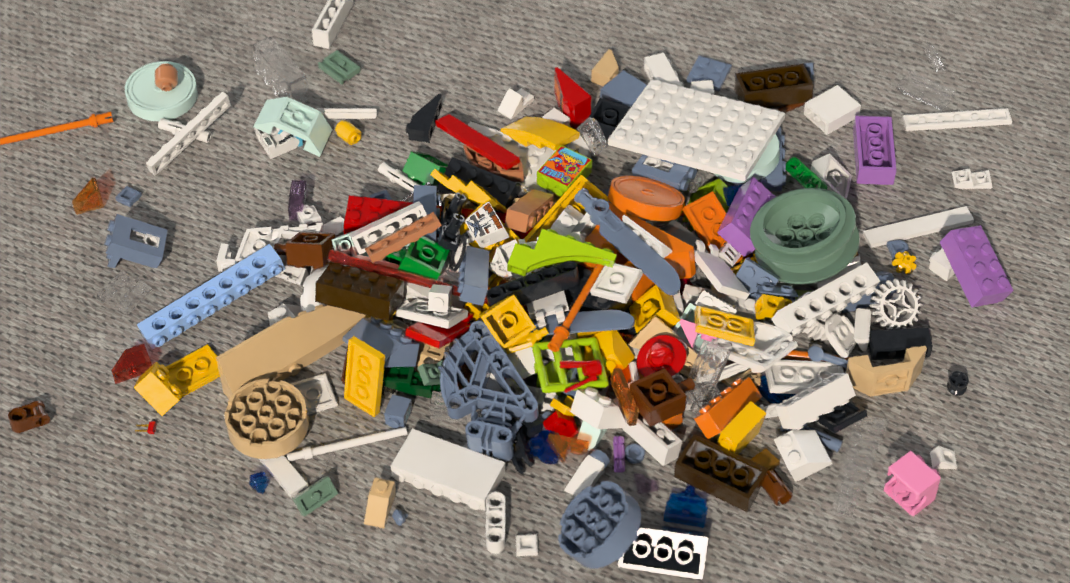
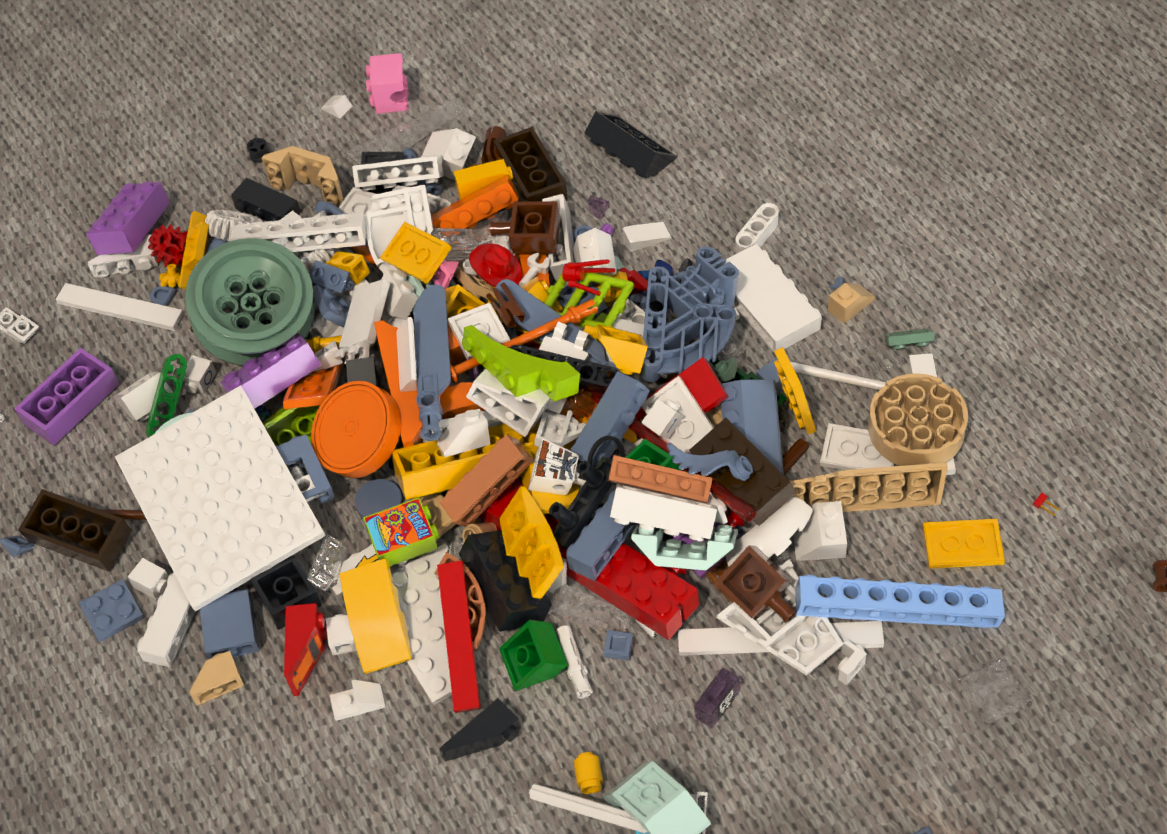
camera: 140 degrees left, 5 degrees up
(131, 364) = (1029, 580): clear red slope -> none
(134, 242) = (954, 738): sand blue brick -> none
(156, 388) = (1020, 522): yellow brick -> none
(259, 482) = (957, 379): clear blue plate -> none
(309, 215) = (719, 656): white brick -> none
(377, 261) = (739, 466): none -> sand blue plant
(526, 545) = (741, 207): white tile -> none
(561, 444) = (638, 258): clear orange slope -> none
(599, 525) = (676, 159): sand blue brick -> none
(601, 456) = (621, 240): sand blue tile -> none
(611, 304) = (507, 308): none -> reddish brown arm
(624, 397) = (561, 248): clear orange tile -> none
(686, 508) = (581, 169): clear blue slope -> none
(832, 109) = (48, 470): white brick -> none
(899, 271) = (195, 246): none -> yellow bracket
(932, 278) = (171, 247): none -> red gear

